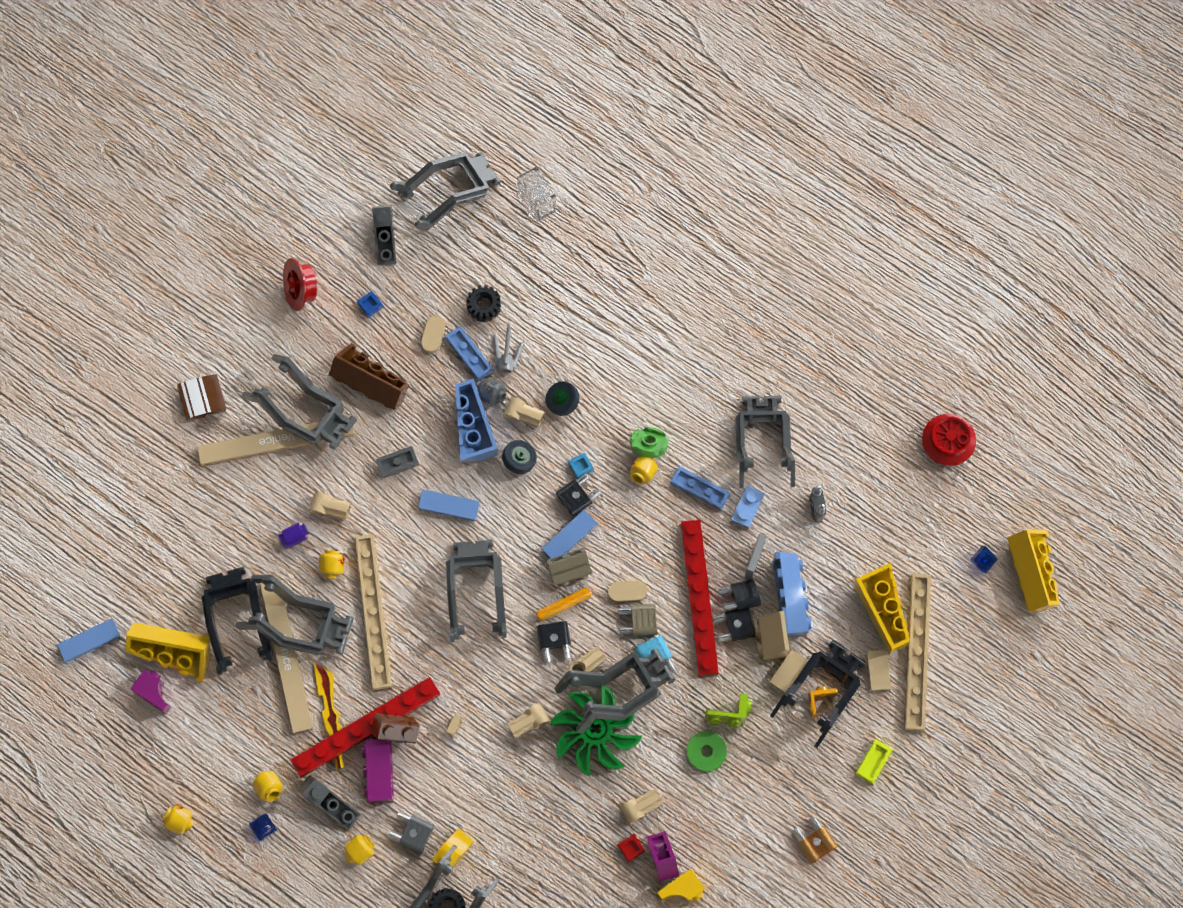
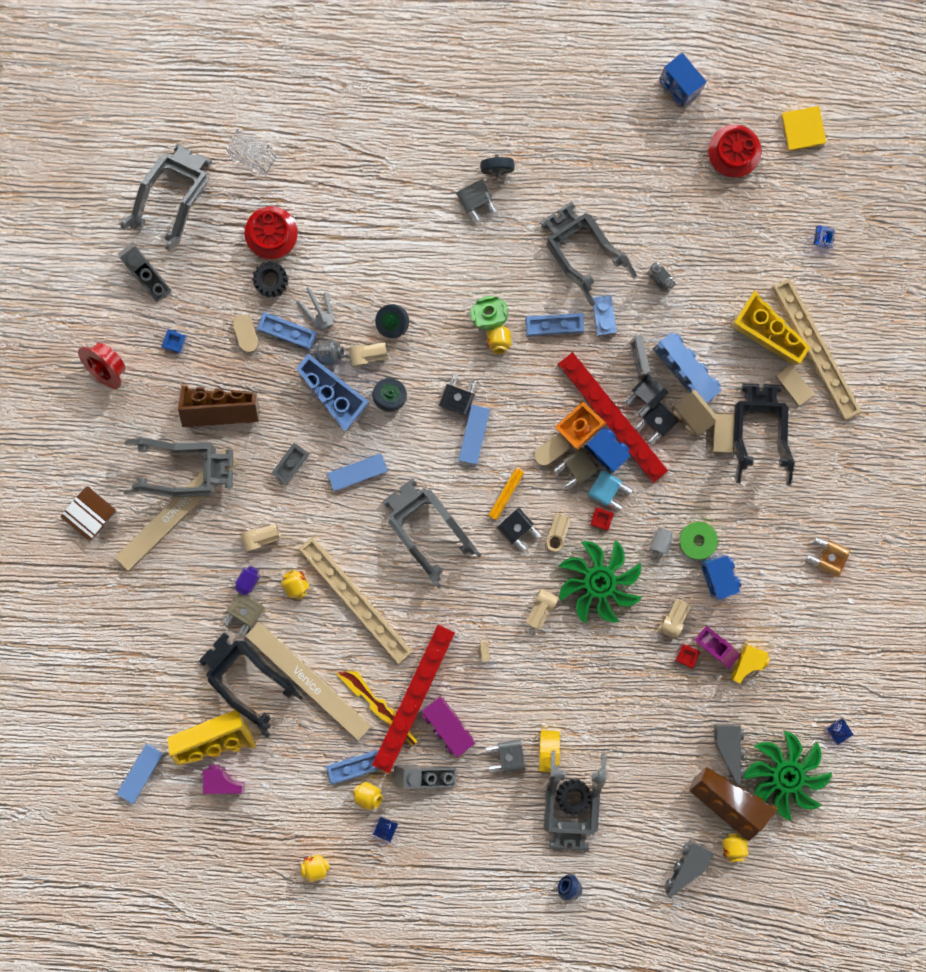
camera: 30 degrees left, 15 degrees up
(270, 754) = (352, 767): none -> medium blue tile
(274, 559) = (246, 610): none -> dark tan piece
(329, 630) = (330, 638): dark grey piece -> none
(359, 849) = (474, 798): yellow head -> none
(395, 728) = (440, 686): reddish brown brick -> none
(509, 266) = (271, 232): none -> red wheel
(569, 567) = (492, 462): dark tan brick -> none
(580, 465) = (444, 368): dark azure tile -> none
(631, 680) = (601, 518): none -> red tile
(648, 671) = (616, 510): dark grey piece -> none
(665, 583) = (580, 425): none -> orange slope
(672, 730) = (661, 542): none -> light grey brick
(674, 618) = (608, 450): none -> blue brick
(700, 342) = (475, 197): none -> dark grey piece
(704, 790) = (720, 576): none -> blue brick
(733, 719) = (709, 490): lime bracket -> none
(735, 327) = (497, 165): none -> black wheel
(820, 692) = (759, 435): light orange bracket -> none
(873, 761) = (836, 462): neon yellow tile -> none
(937, 353) = (682, 80): none -> blue brick
(1022, 458) = (803, 128): none -> yellow tile
(1034, 569) = (871, 220): yellow wedge -> none

